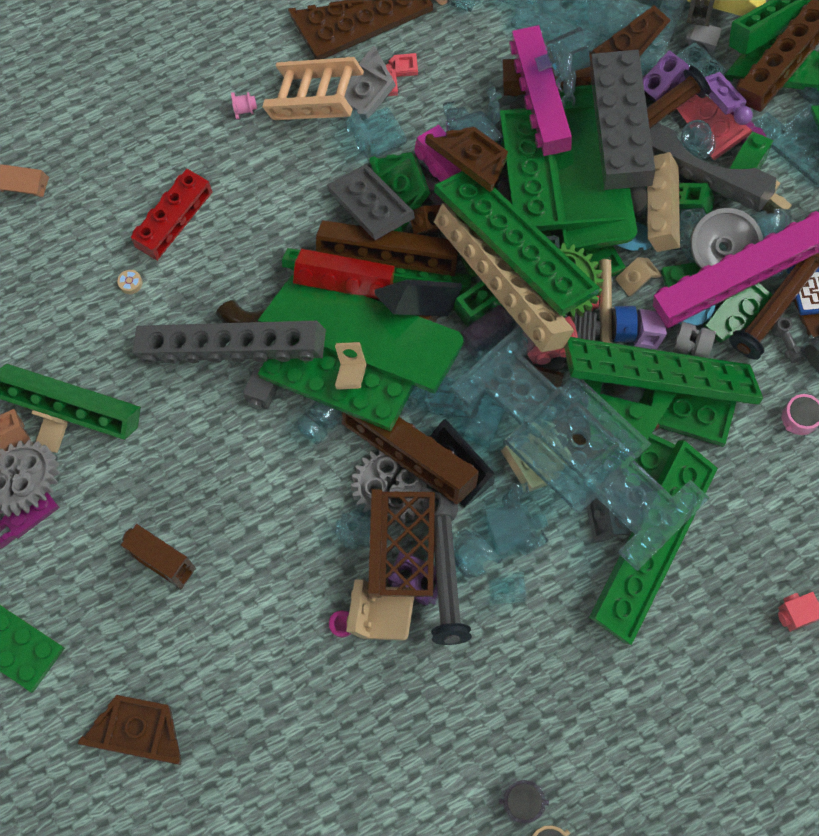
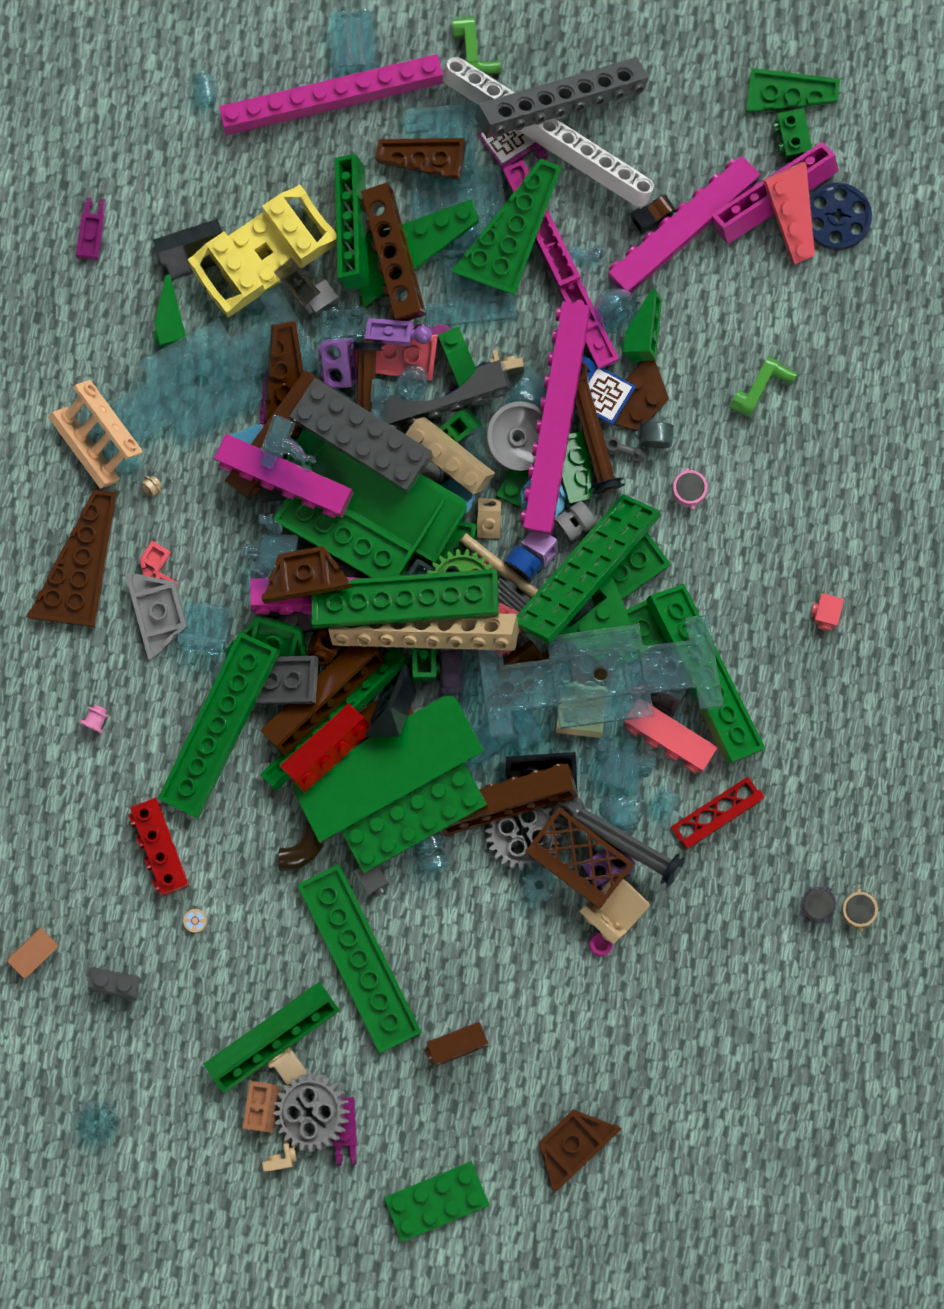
camera: 55 degrees left, 10 degrees up
(33, 254) = (114, 983): none -> dark grey brick
(172, 337) = (264, 937): dark grey brick -> none
(179, 437) = (359, 959): none -> green plate
(303, 187) = (219, 725): none -> green plate
(319, 105) = (153, 660): light nougat fence -> none
(351, 369) = (420, 800): tan bracket -> none
(458, 25) = (151, 486): none -> tan plate
(535, 651) = (723, 819): none -> red fence
(575, 554) = (674, 739): none -> coral brick
(665, 118) = (379, 395): none -> clear light blue plate

